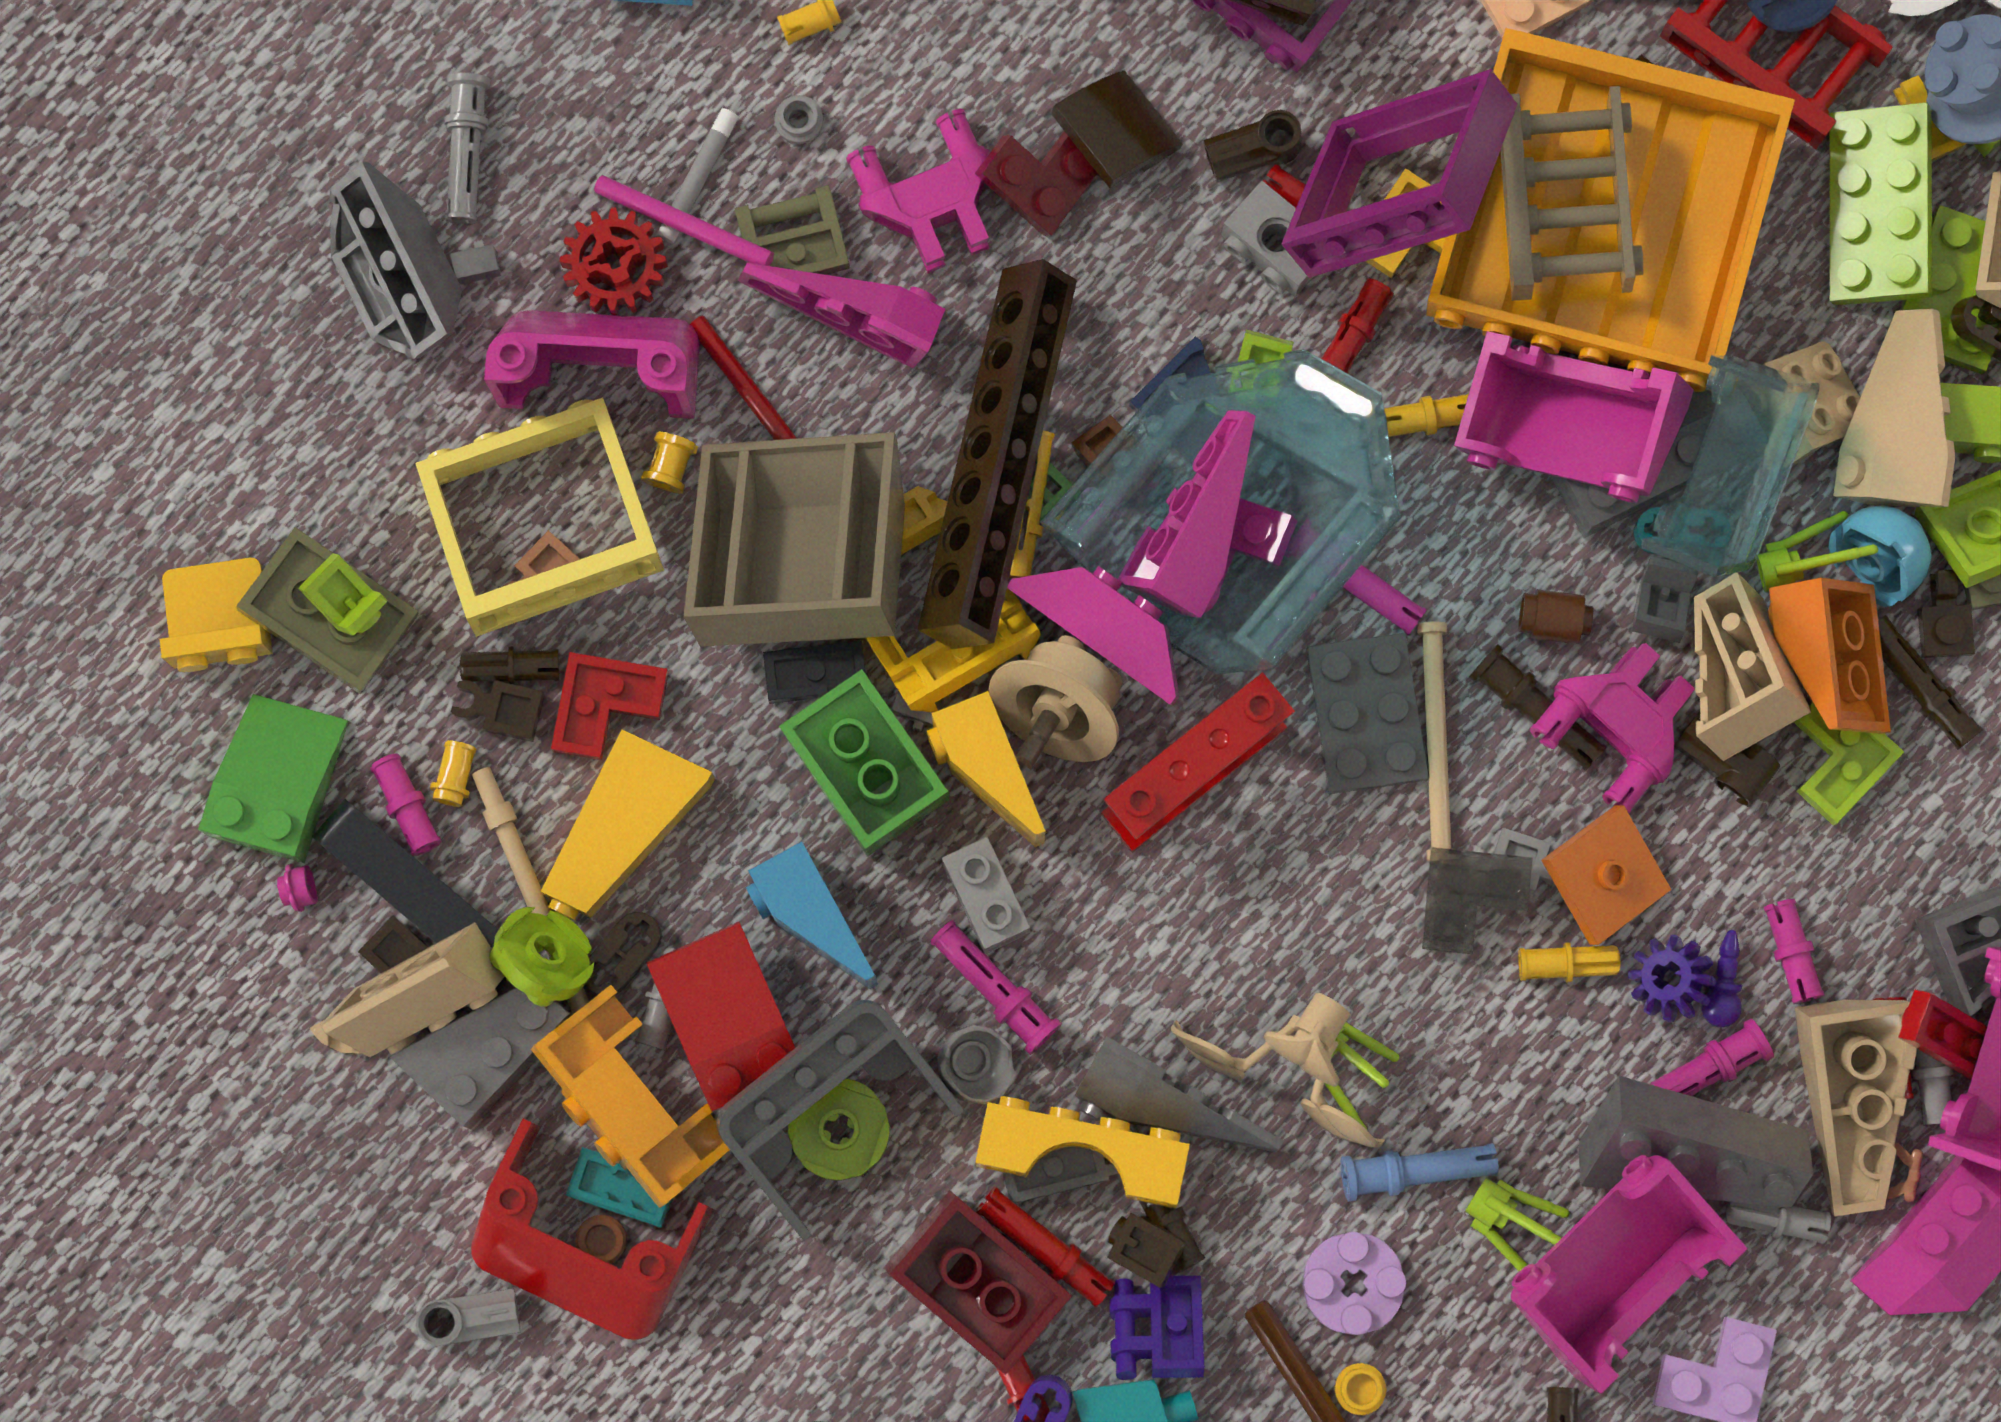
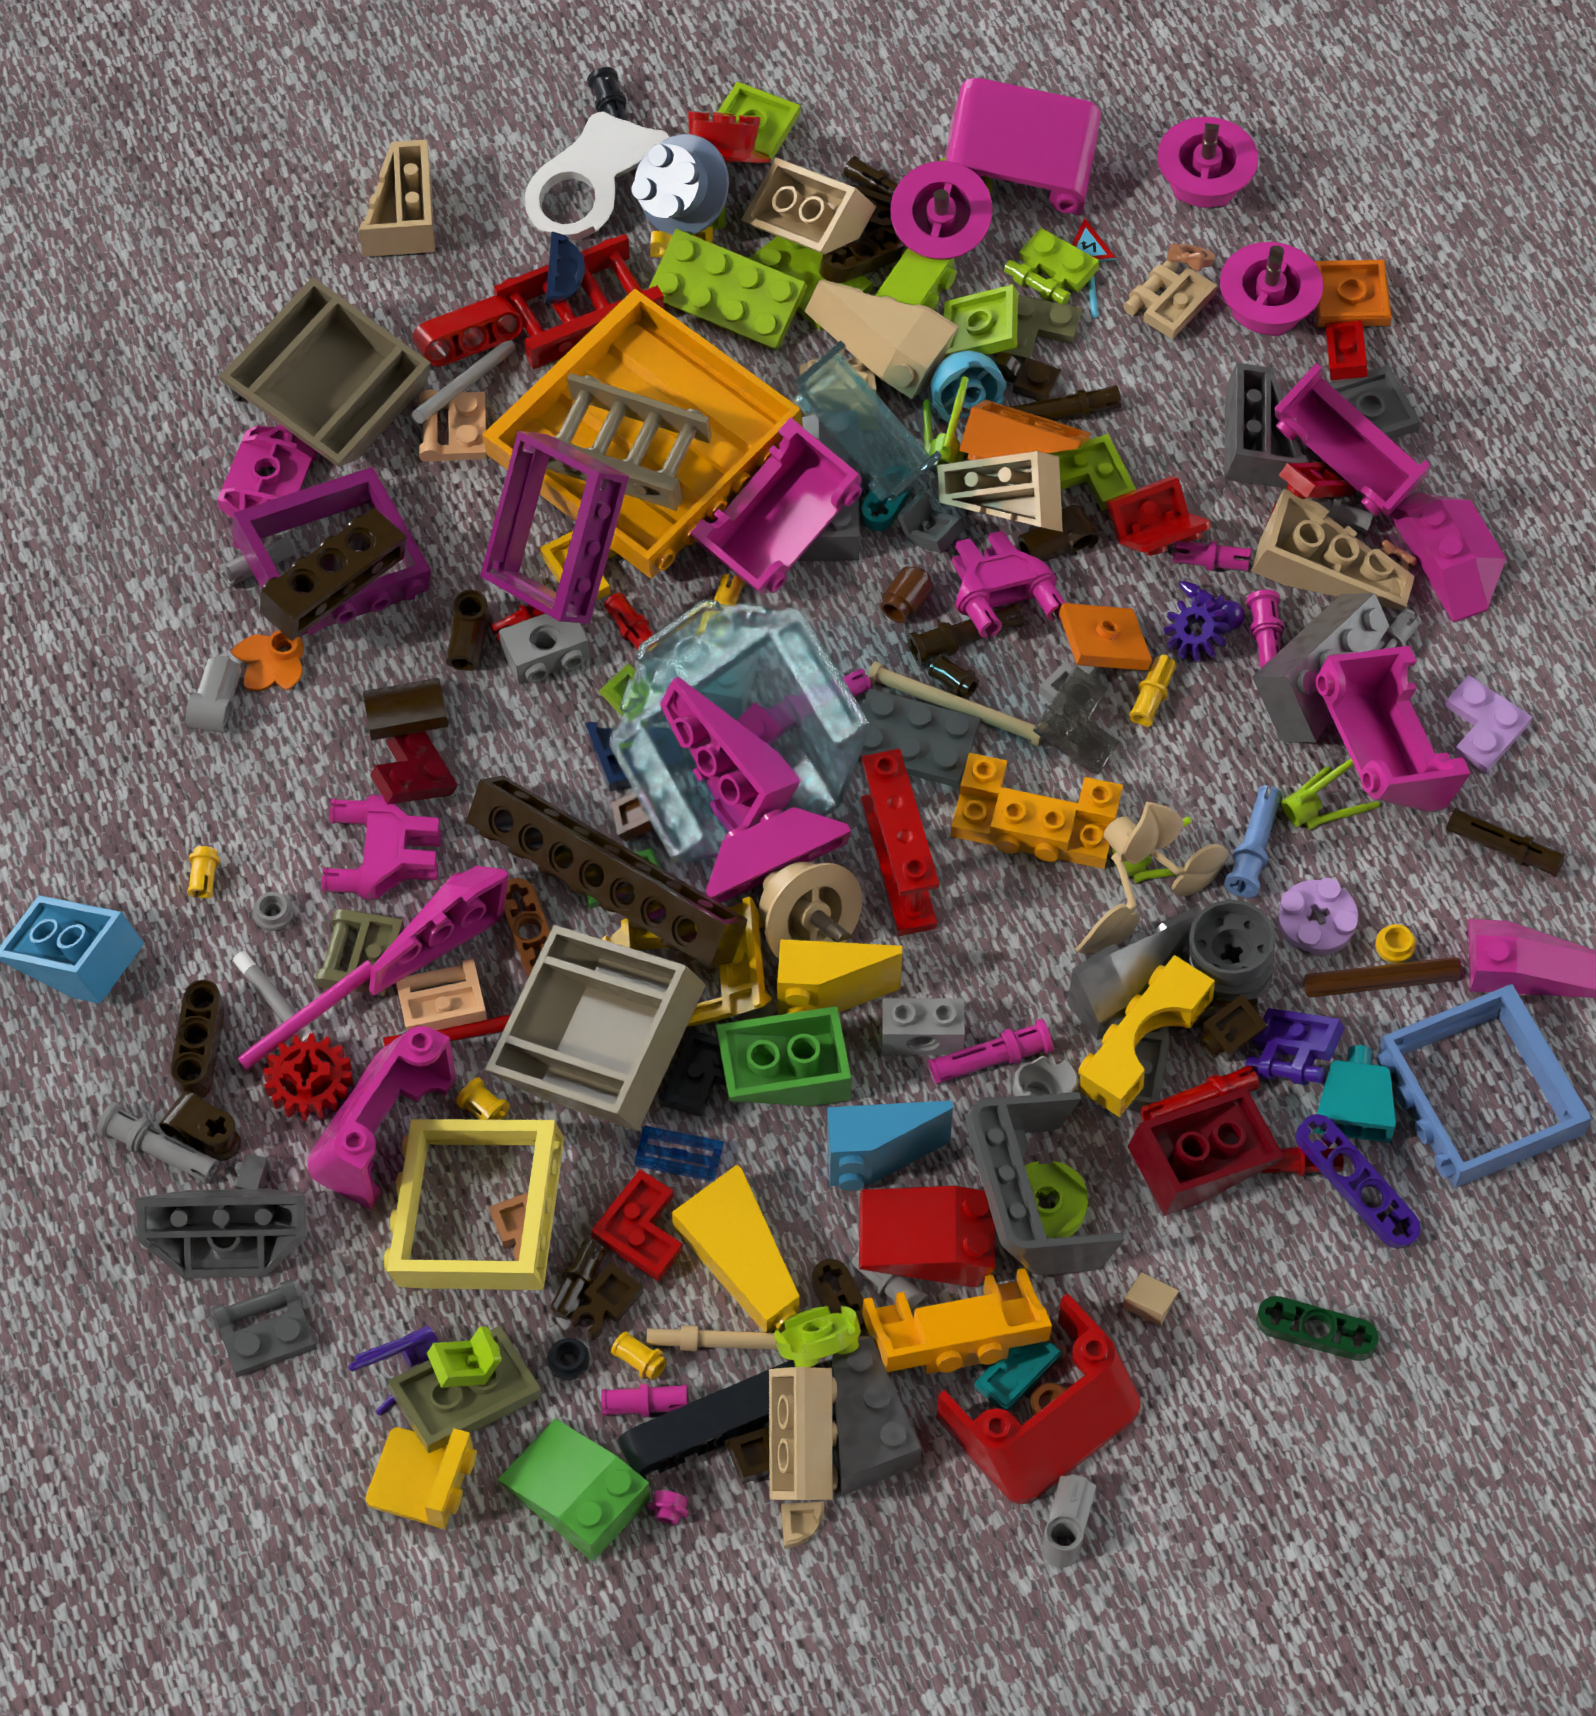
camera: 65 degrees left, 20 degrees down
(299, 380) = (267, 1340): none -> dark grey plate
(356, 539) = (412, 1347): none -> dark purple plant
(408, 689) = (565, 1347): none -> black plate
(504, 177) = (202, 1127): none -> dark brown piece
(616, 104) = (195, 1024): none -> dark brown beam
(722, 742) = (674, 1167): none -> clear blue tile
(765, 359) = (442, 1005): none -> light nougat plate
(777, 1295) = (1150, 1299): none -> tan slope
(925, 371) = (532, 915): none -> dark orange beam
(1240, 1175) = (1233, 947): none -> dark grey wheel
(1313, 901) = (1032, 821): none -> light orange bracket
(1470, 722) = (961, 681): none -> dark brown pin
(1804, 865) = (1154, 517): none -> red bracket

